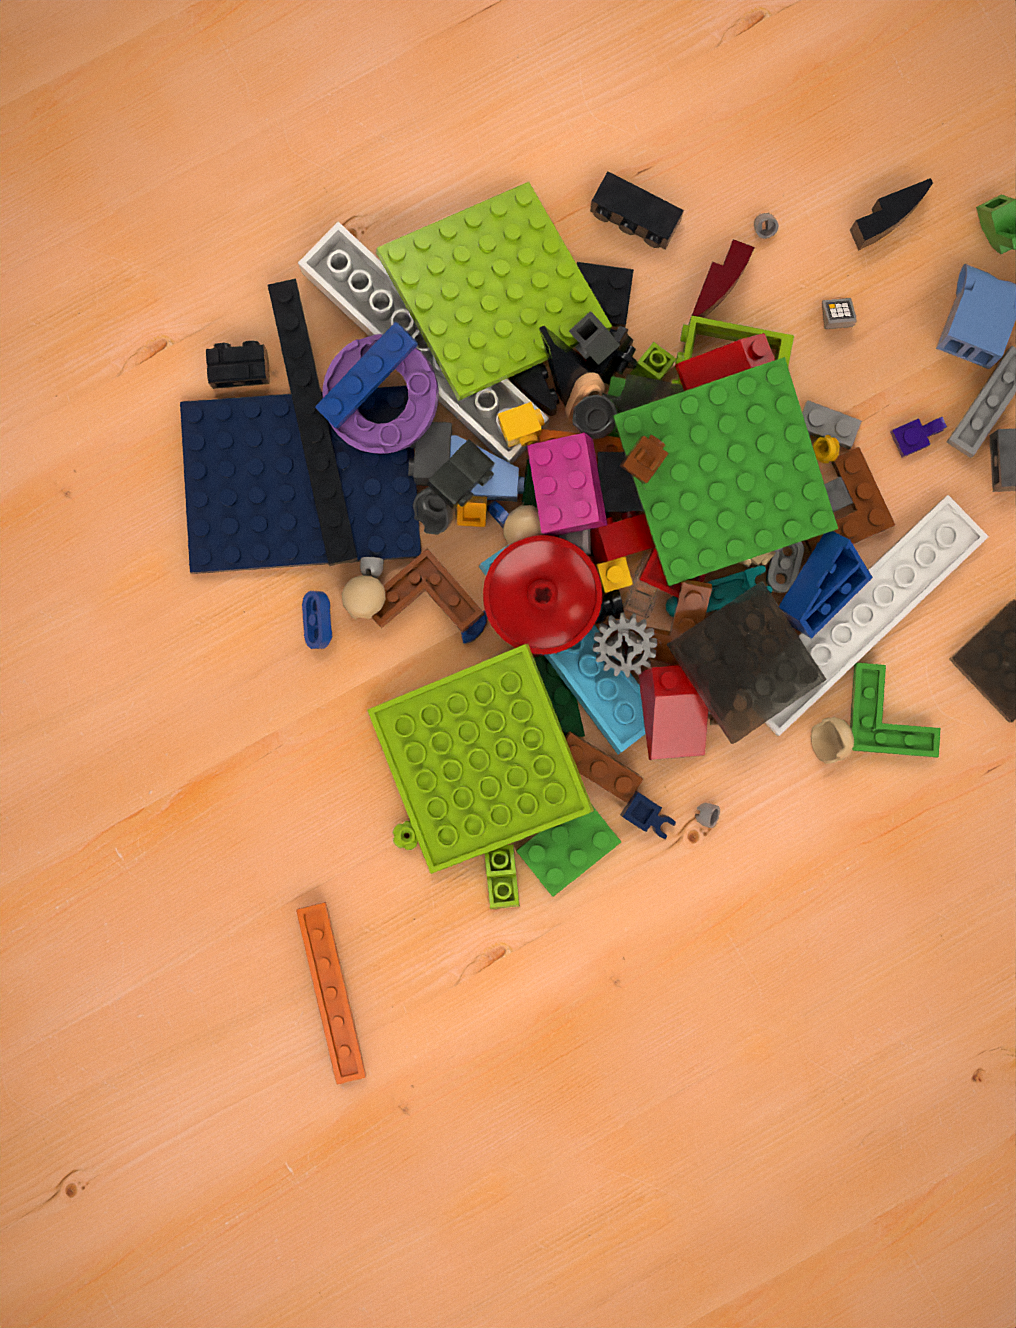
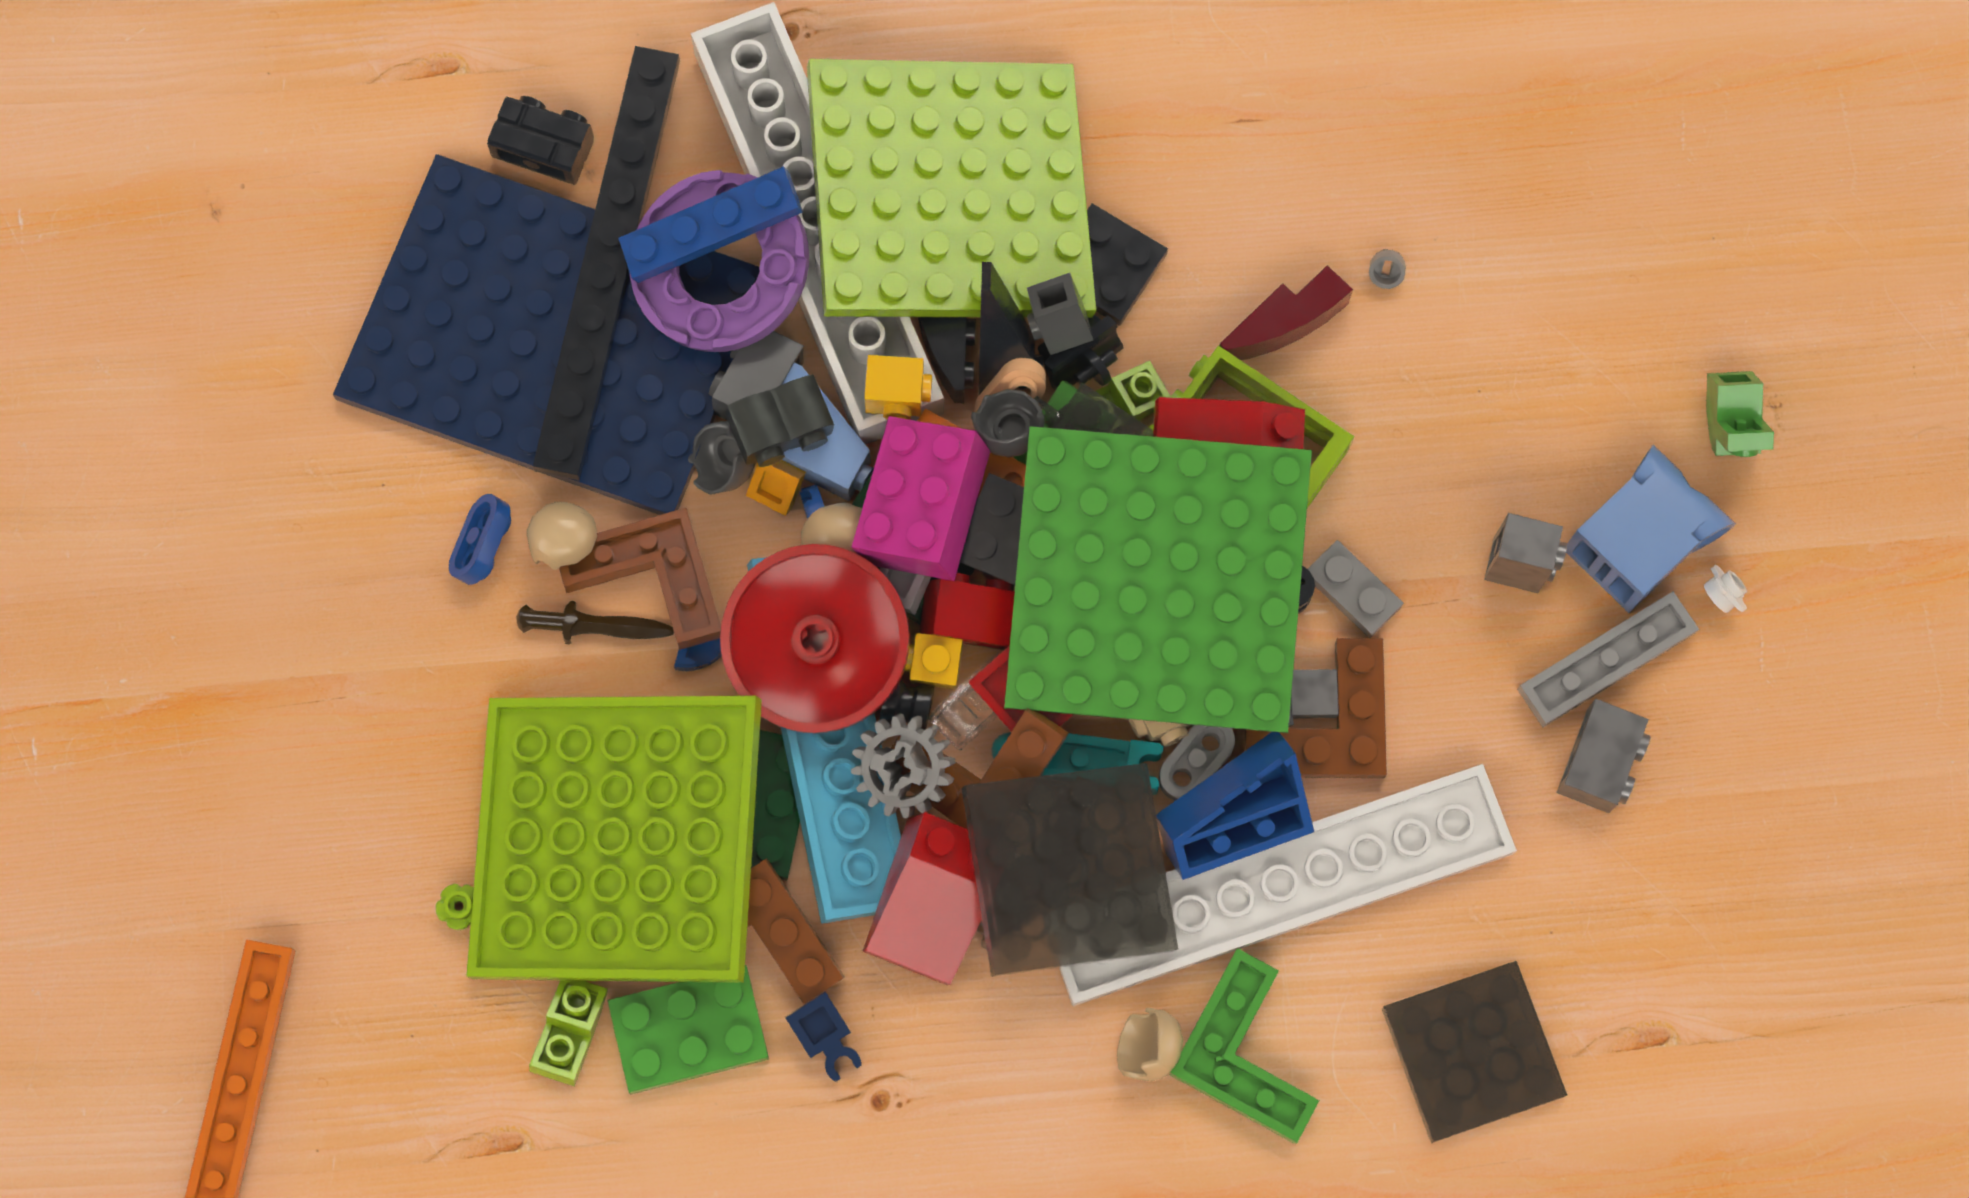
camera: 20 degrees right, 10 degrees down
(371, 566) = (595, 498): light grey hinge -> none
(395, 642) = (576, 623): none -> dark brown sword
(636, 211) = (1208, 169): black brick -> none
(645, 458) = (1044, 502): dark orange brick -> none
(708, 814) = (915, 1076): light grey hinge -> none
(821, 449) = (1332, 620): yellow plate -> none
(838, 313) = (1439, 437): slope -> none
(888, 214) = (1575, 328): black slope -> none
(914, 436) = (1470, 660): dark purple plate -> none
(921, 361) = (1525, 553): none -> flat silver brick

